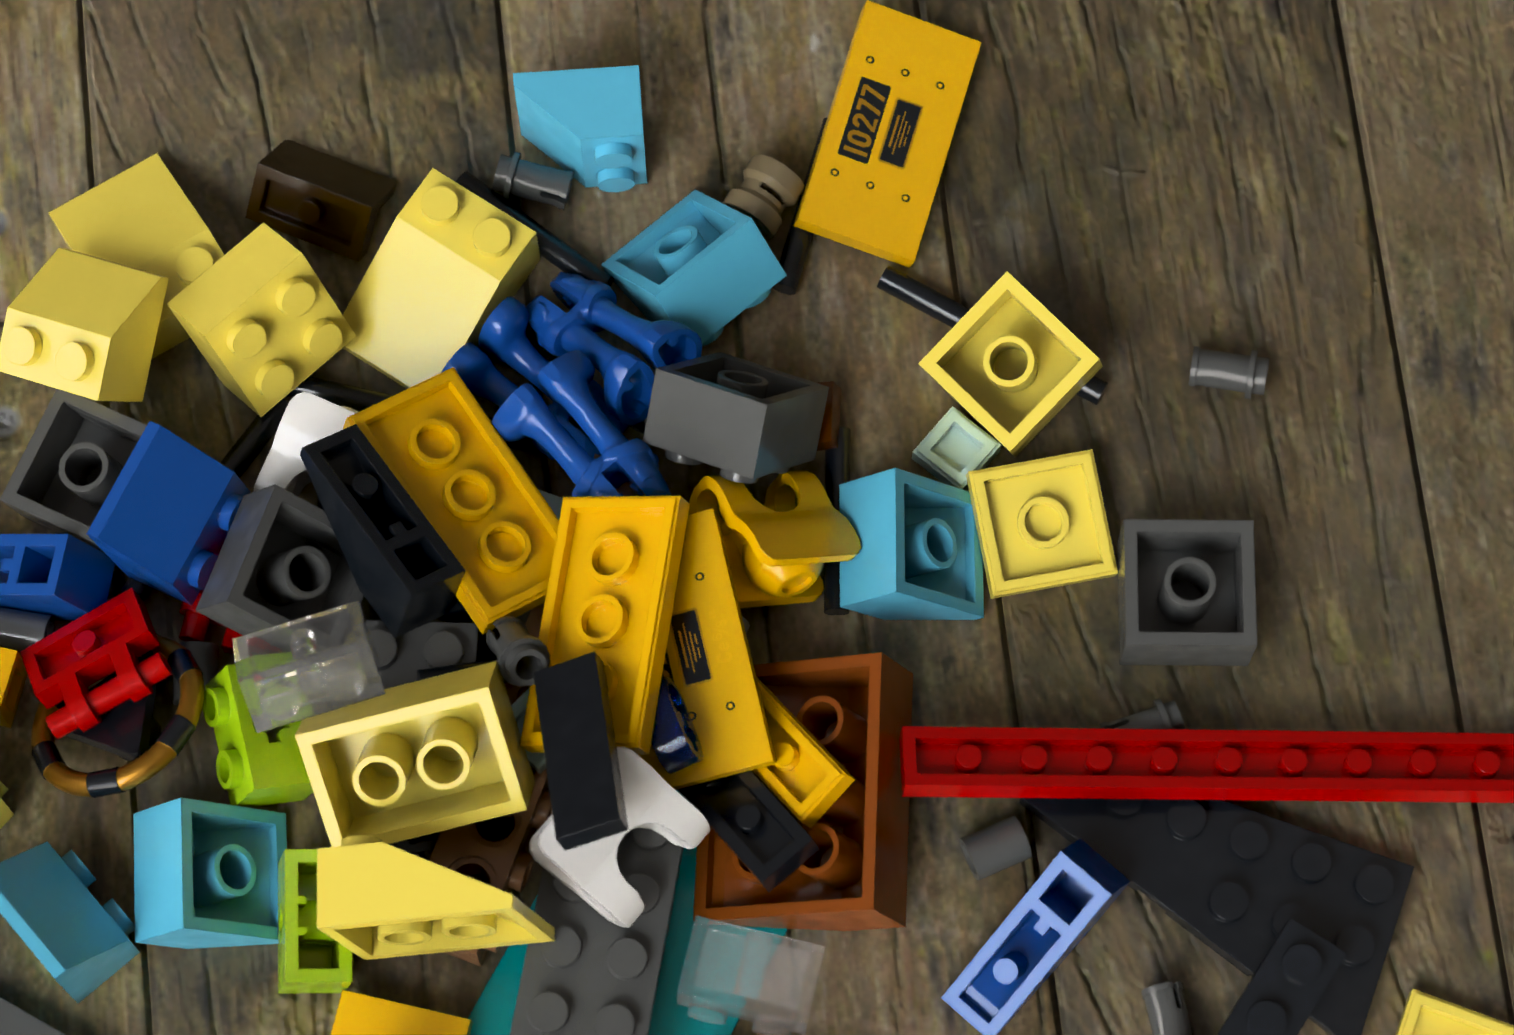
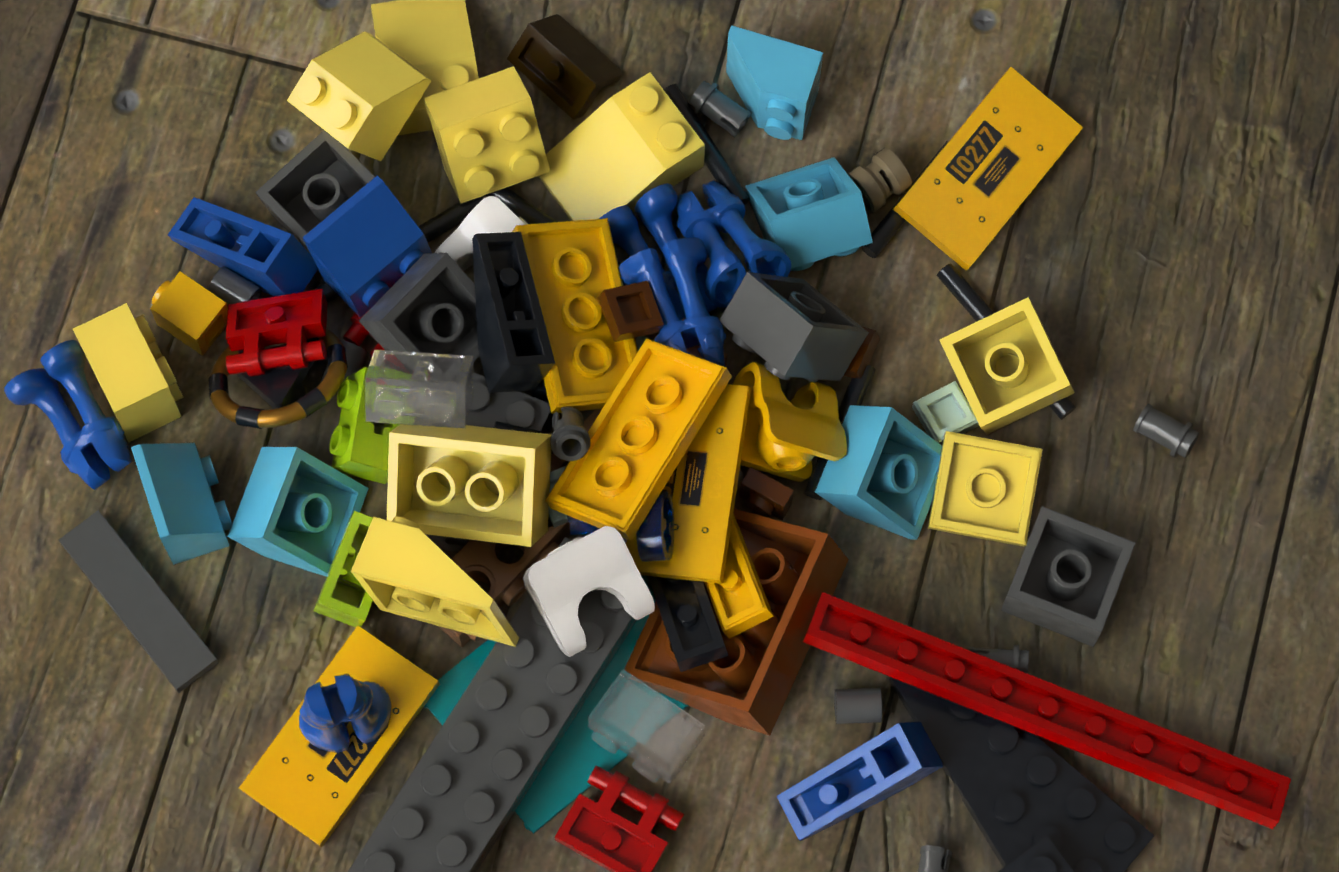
camera: 20 degrees right, 0 degrees up
(530, 470) = (630, 311): none -> reddish brown plate
(580, 751) = (582, 519): black tile -> none
(780, 633) = (765, 495): none -> reddish brown plate

